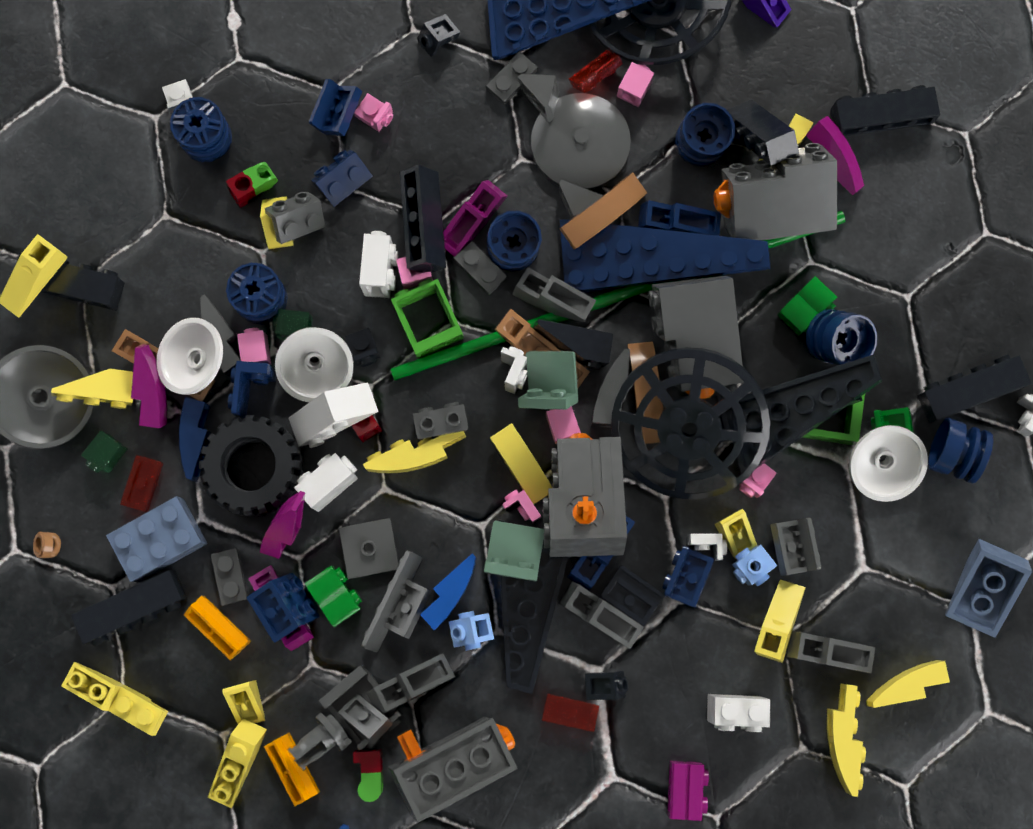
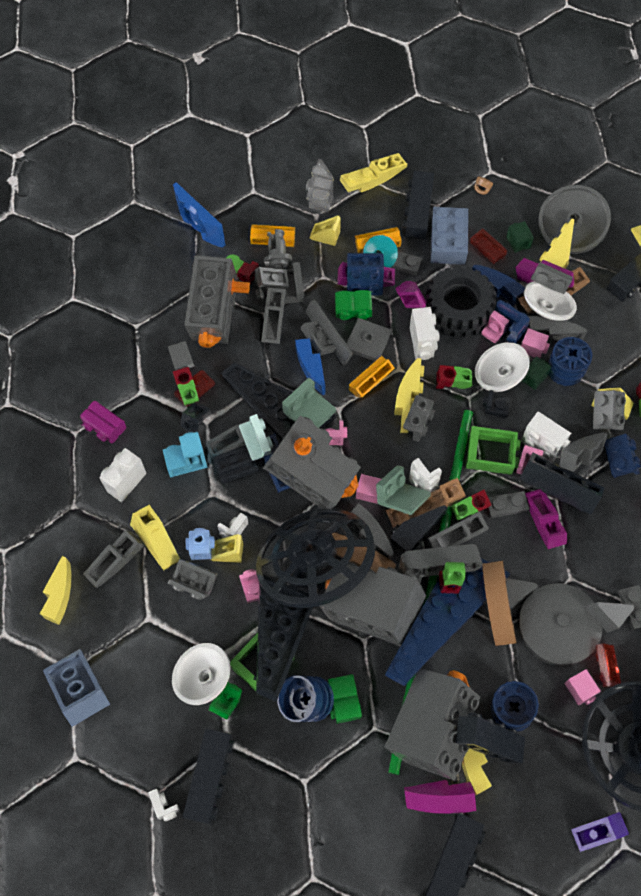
camera: 125 degrees right, 15 degrees down
(157, 370) = (551, 278): none -> dark grey plate
(186, 747) = (320, 188): none -> clear slope
(229, 612) = (385, 245): none -> teal dish
(236, 762) = (297, 211): light yellow slope -> none
(261, 404) = (496, 327): none -> bright pink bracket
(332, 413) = (463, 357): white wedge -> none
(371, 216) = (582, 451): none -> dark grey slope
(420, 510) = (371, 377): none -> light orange piece
(471, 630) = (281, 361): light blue brick -> none
(507, 297) = (471, 505): none -> leg
(513, 226) = (517, 520): dark blue wheel -> none
(521, 463) = (365, 448): light yellow slope -> none
(550, 751) = (180, 356): none -> dark grey slope
(581, 718) = (186, 385): none -> leg
(597, 586) = (255, 438): none -> light aqua bracket
(605, 292) = (432, 561): none -> dark grey beam
(619, 264) = (452, 575): none -> bright green leg
(665, 657) = (185, 457): none -> medium azure brick
(679, 218) = (462, 650): dark blue slope -> none
(688, 576) = (222, 502): dark blue bracket -> none
(845, 751) = (57, 528): light yellow slope -> none
(960, 450) = (173, 729): dark blue wheel -> none

